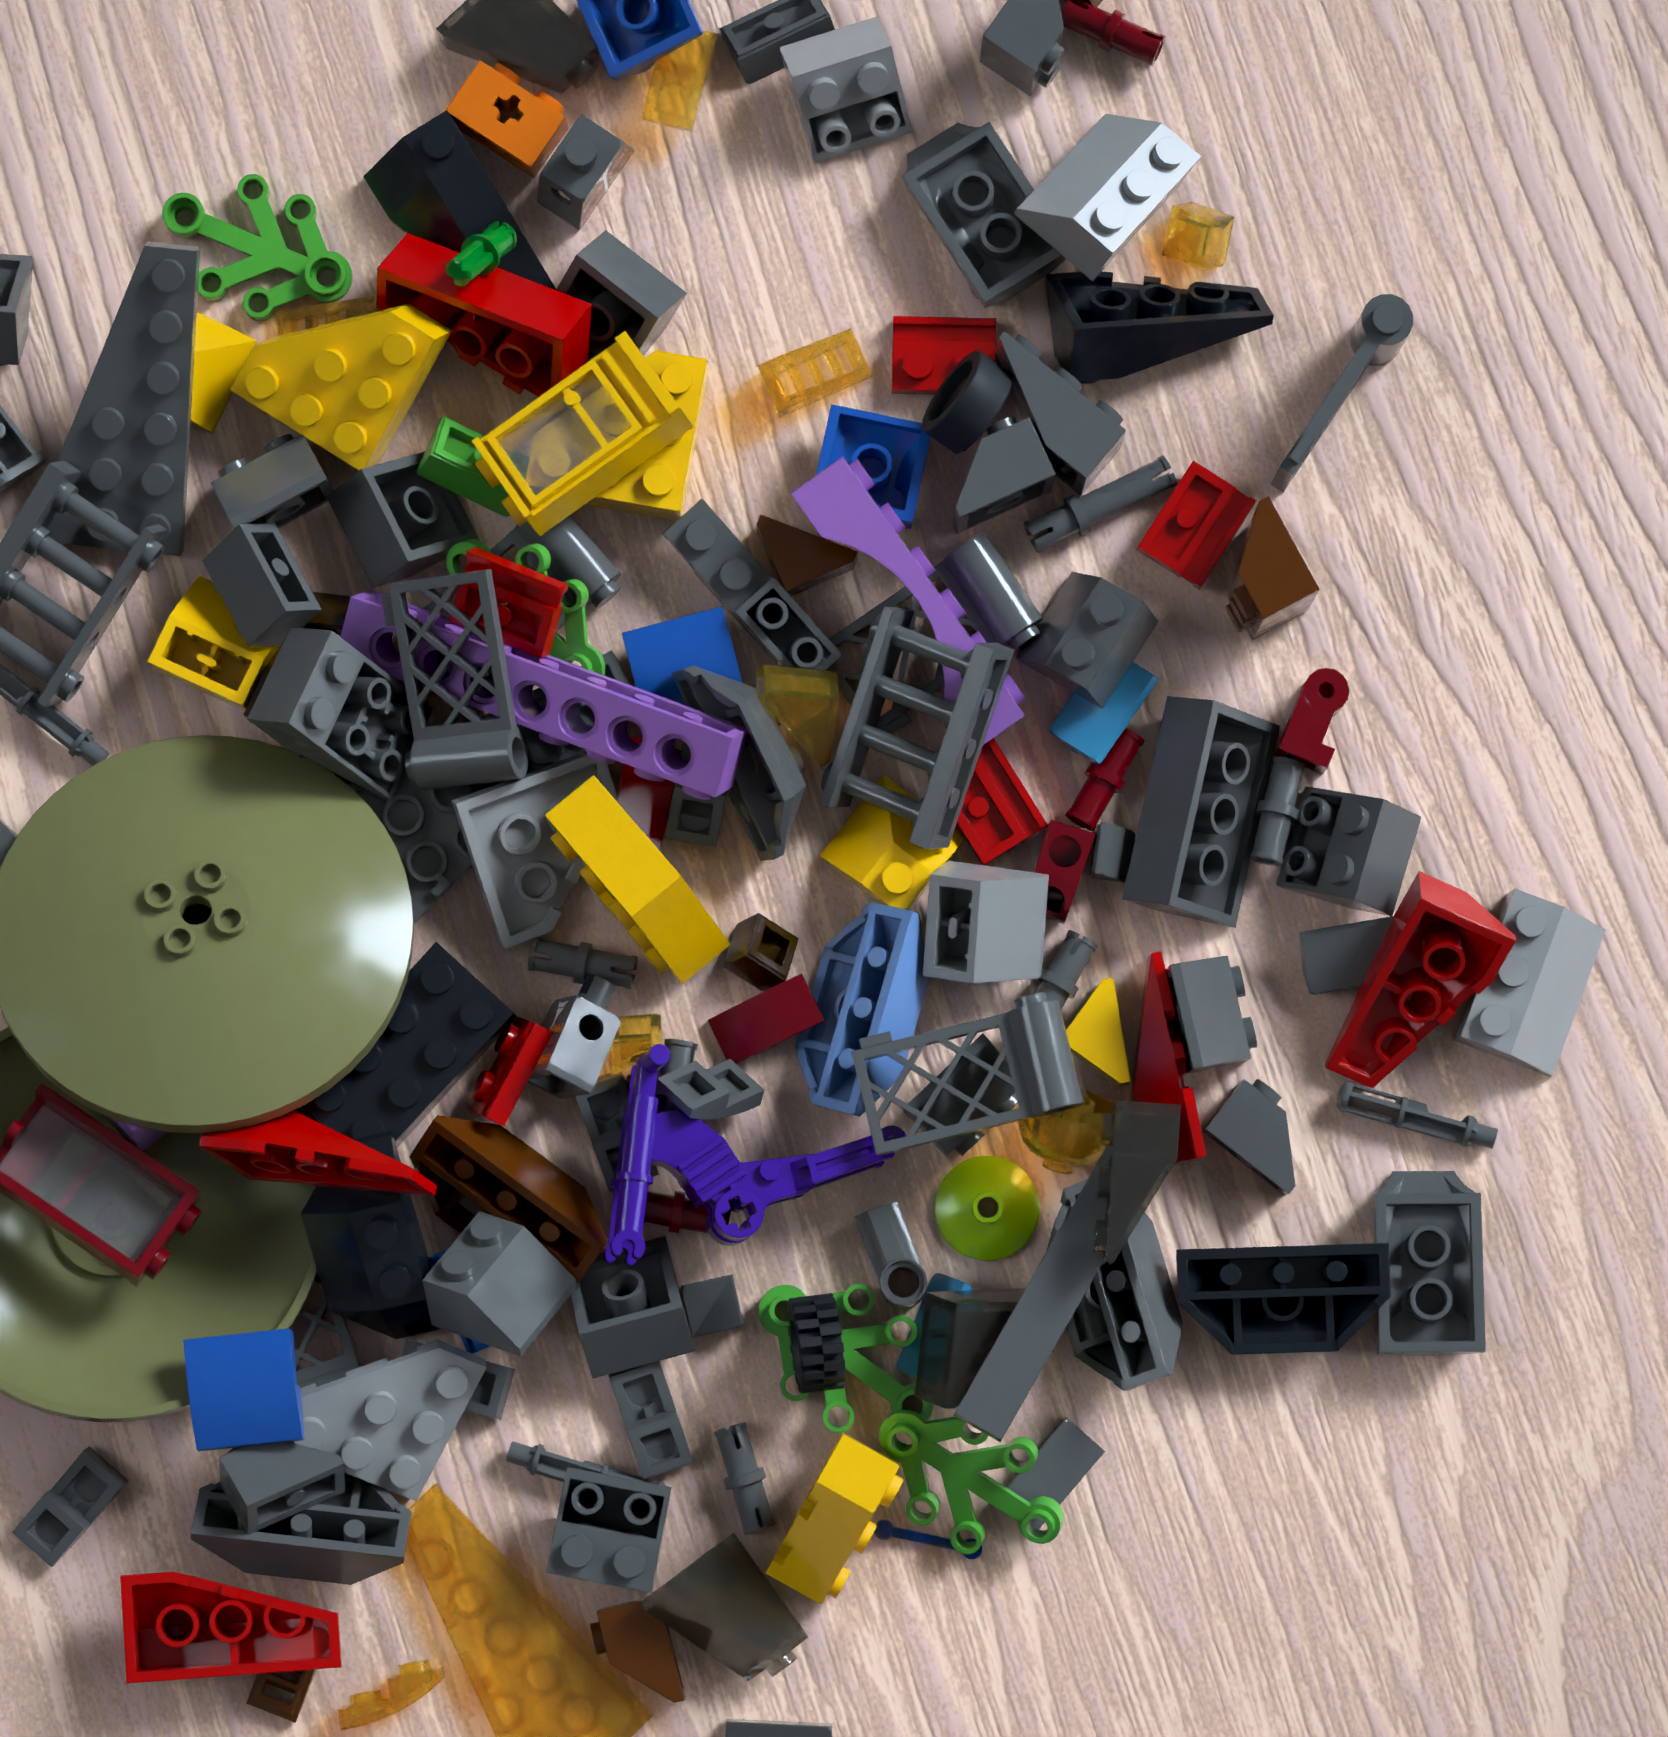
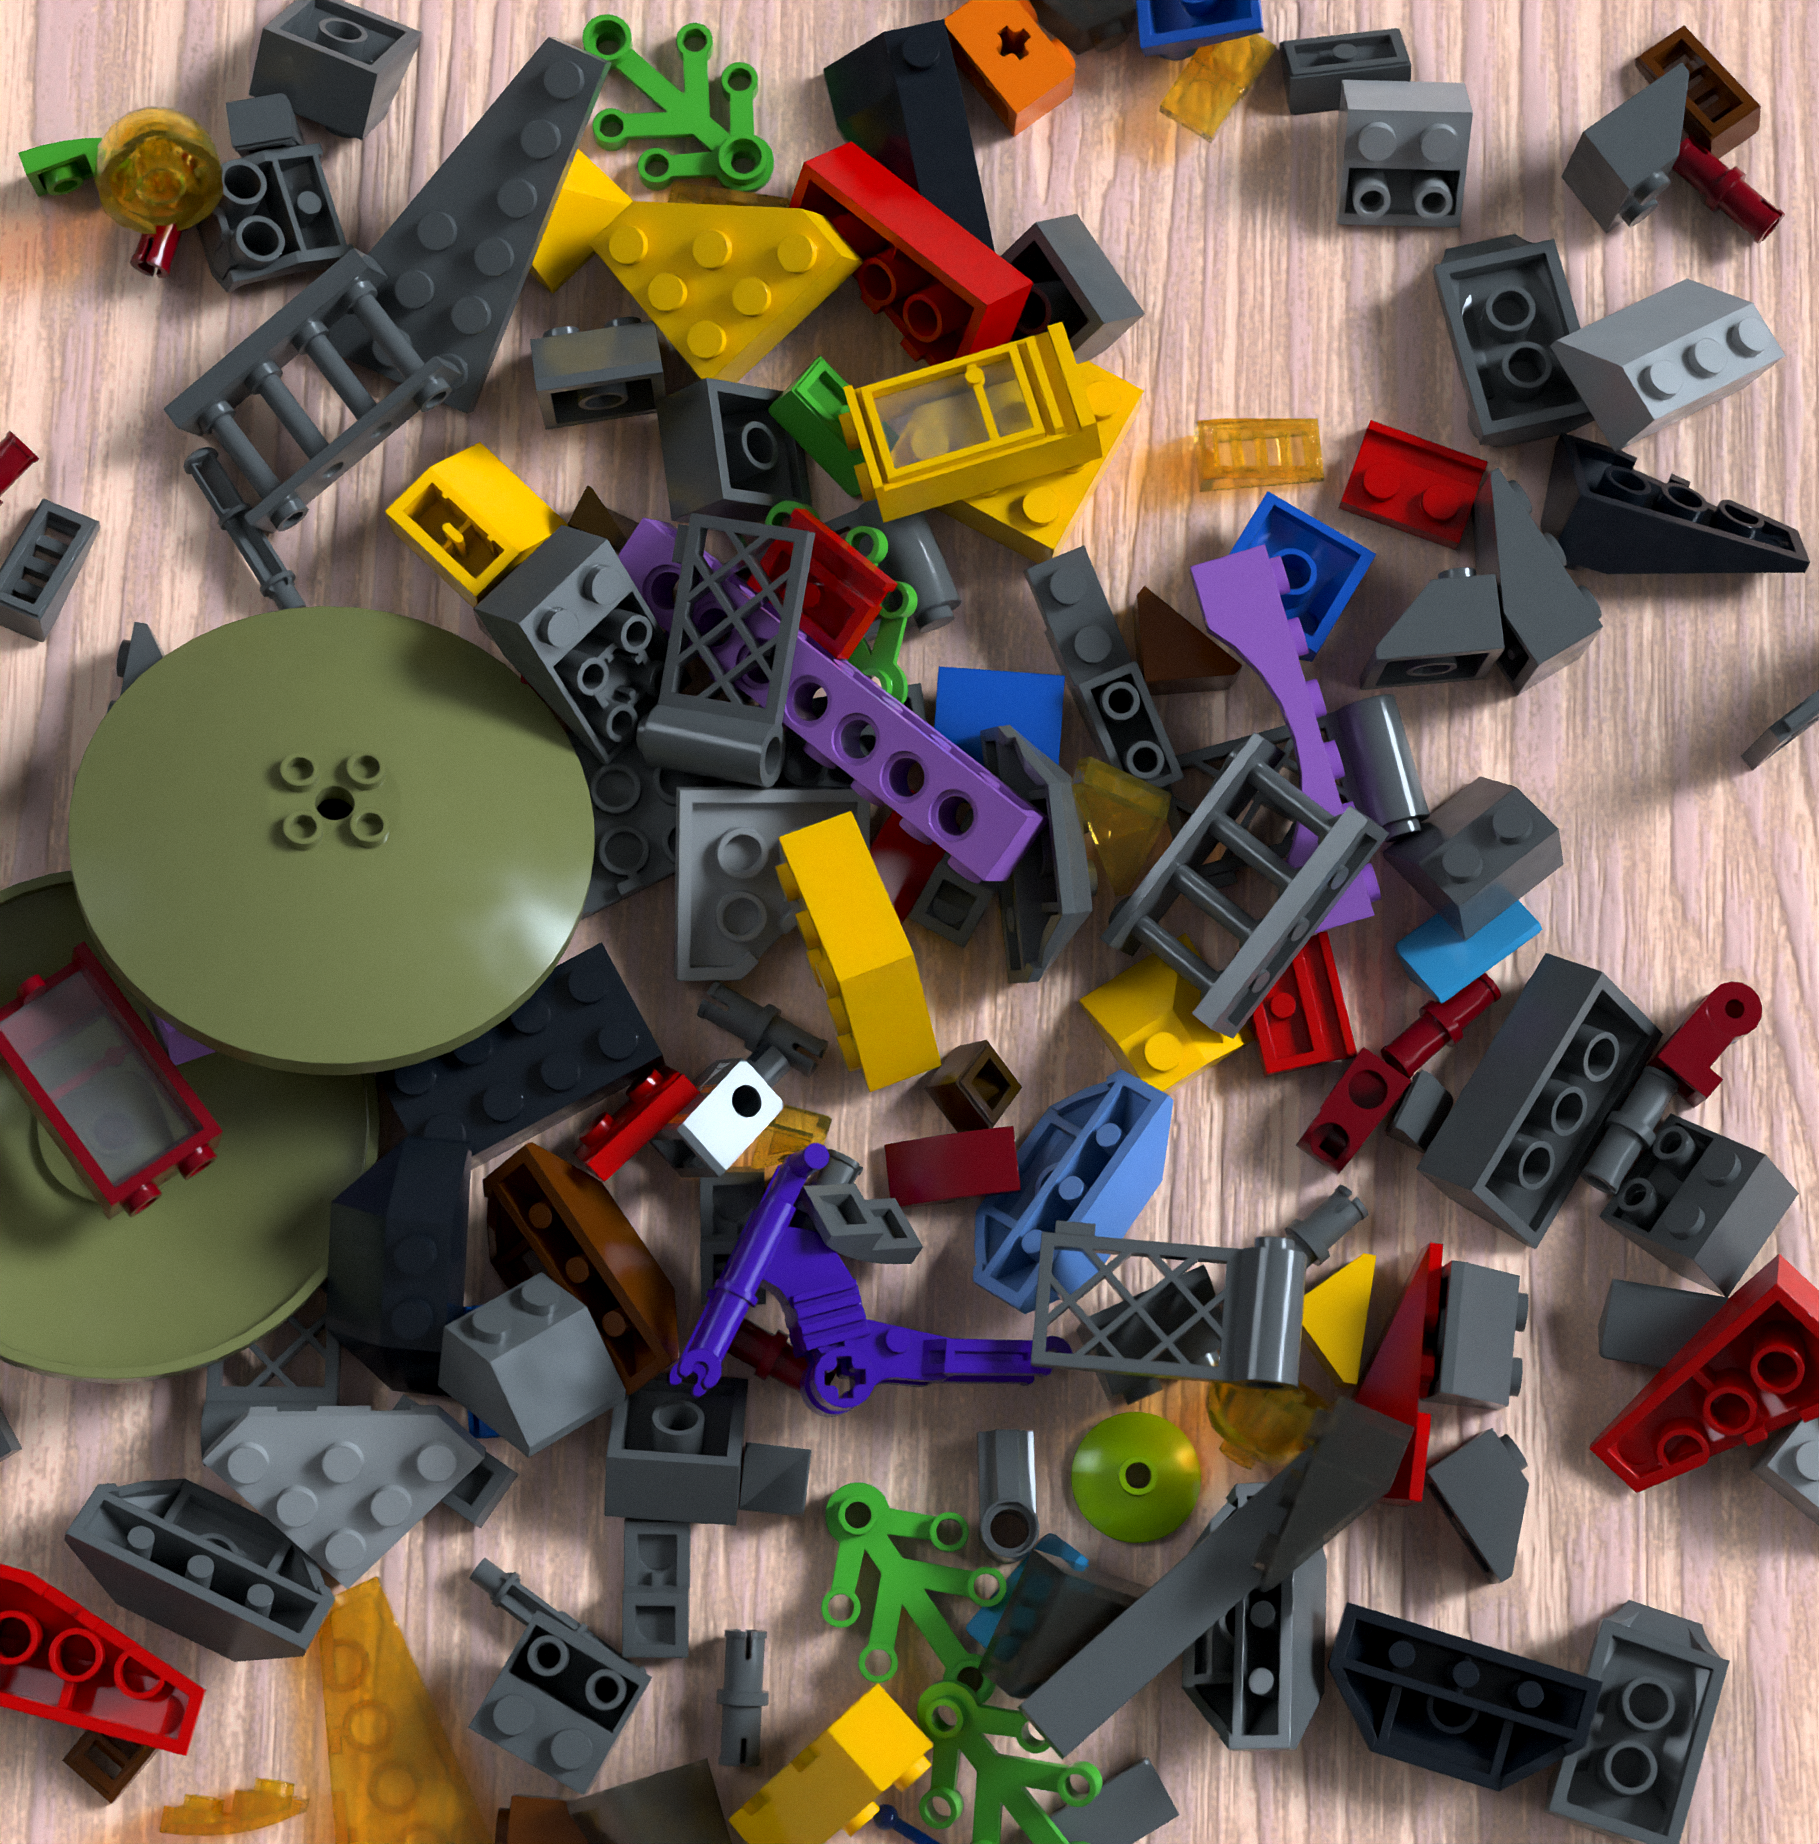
camera: 15 degrees right, 5 degrees down
(243, 1389) = (189, 1383): blue slope -> none
(261, 584) = (545, 466): dark grey brick -> none
(278, 1481) = (192, 1506): dark grey slope -> none
(311, 1154) = (366, 1132): red wedge -> none
(481, 253) = (928, 185): green axle -> none
(582, 170) = (1078, 133): dark grey torso -> none
(816, 1343) = (882, 1565): black tyre -> none
(967, 402) = (1427, 537): black tyre -> none
(985, 923) = (1247, 1141): light grey slope -> none
(1082, 512) = (1537, 710): dark grey pin -> none
(1196, 525) = (1641, 771): red plate -> none
(1198, 235) = (1748, 448): clear yellow slope -> none
(1270, 576) = (1716, 853): reddish brown slope -> none
(1415, 1117) = (1676, 1543): dark grey piece -> none

